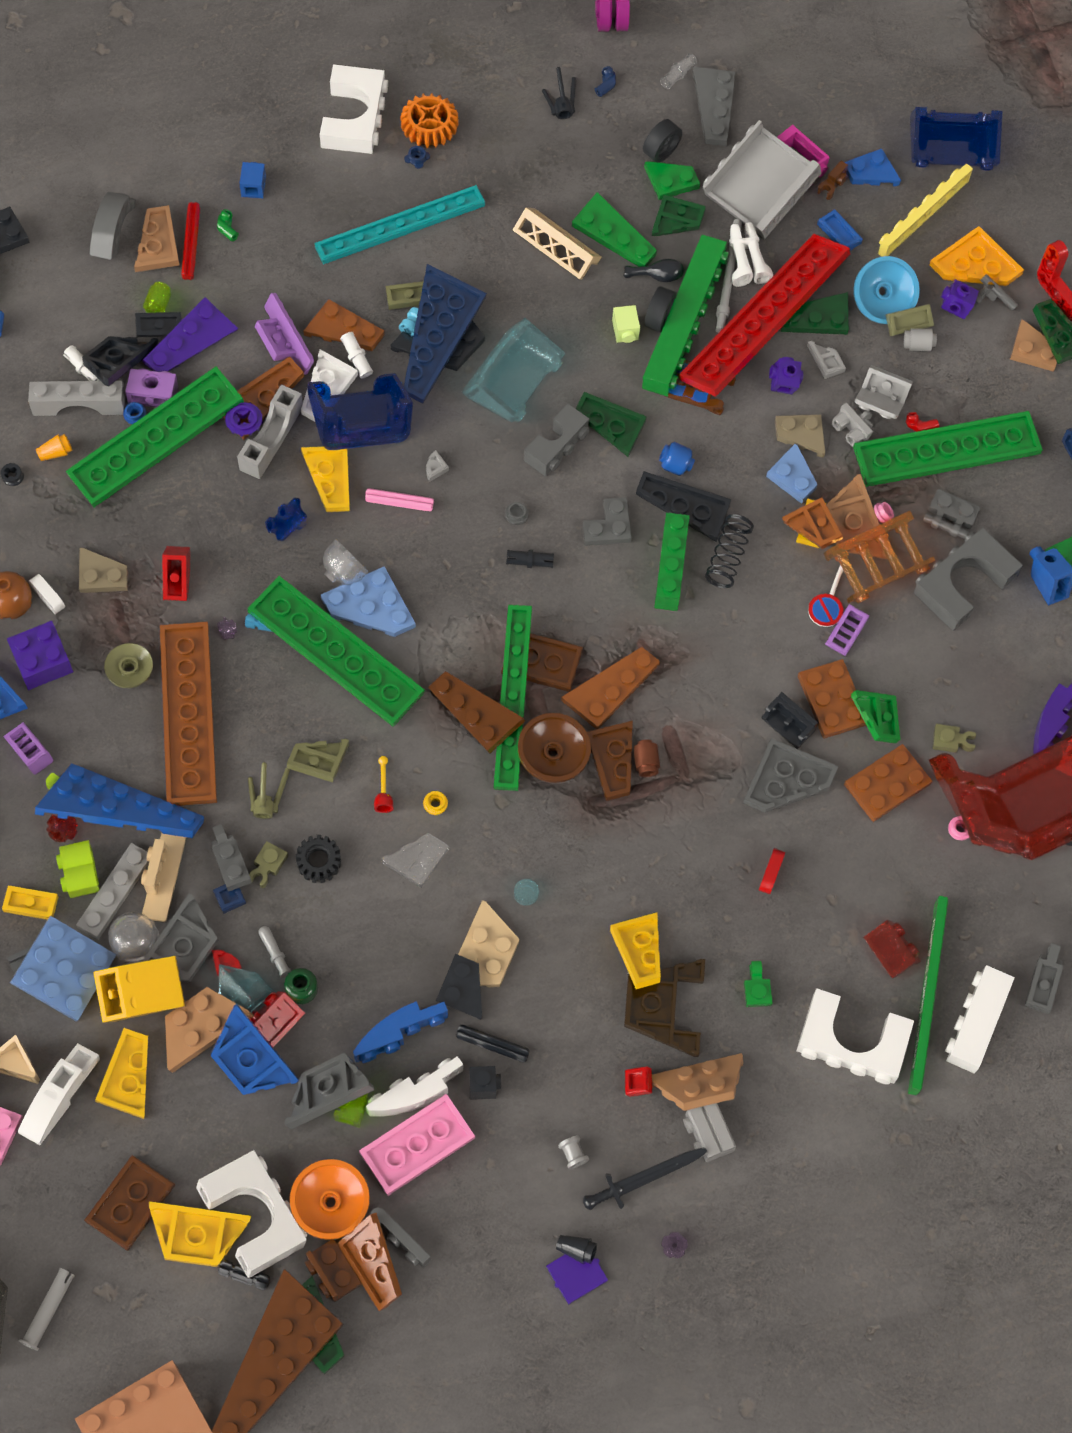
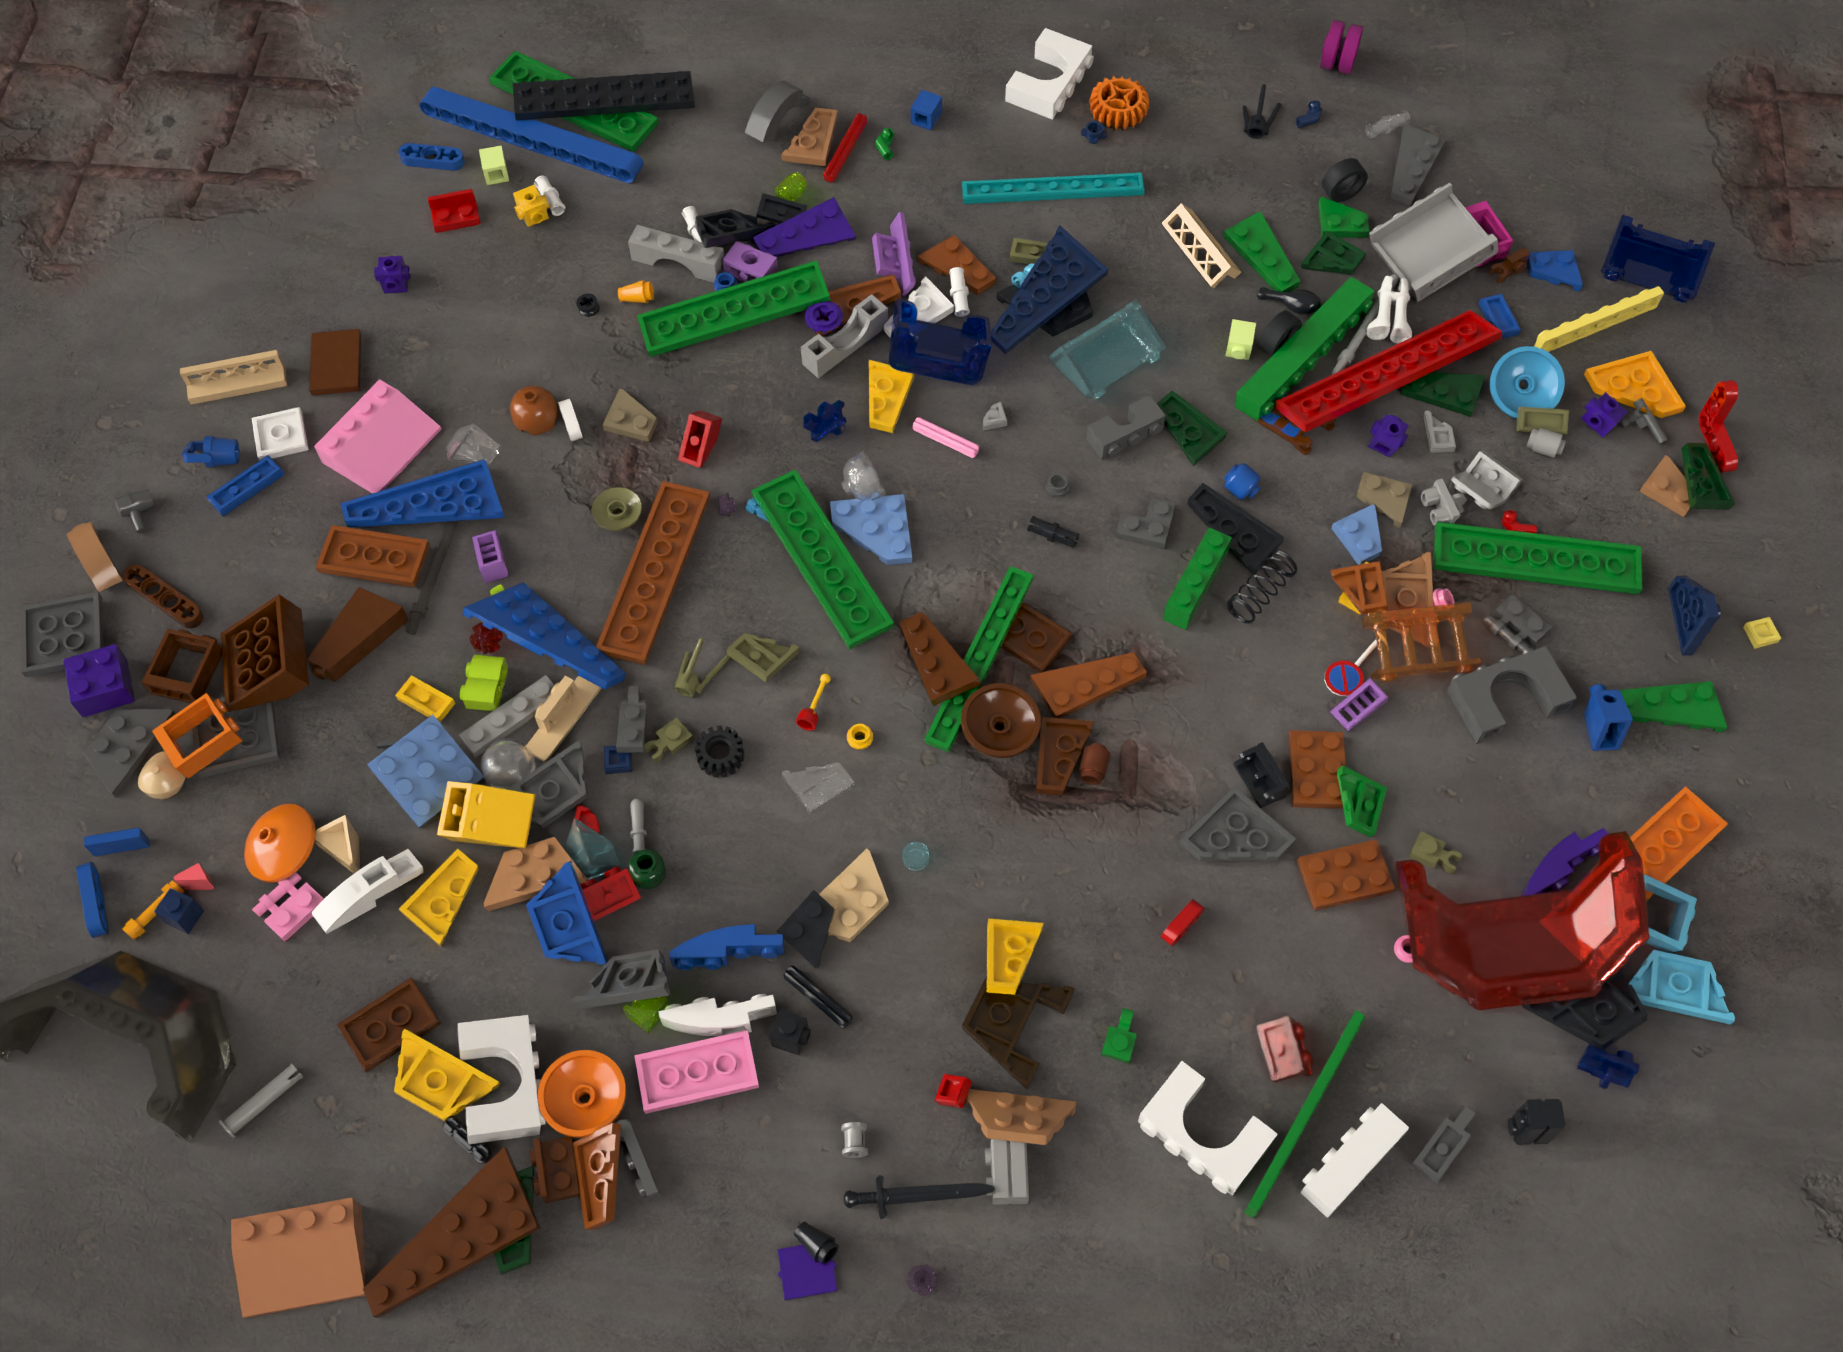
camera: 25 degrees right, 5 degrees down
(40, 655) = (537, 473): dark purple brick -> none

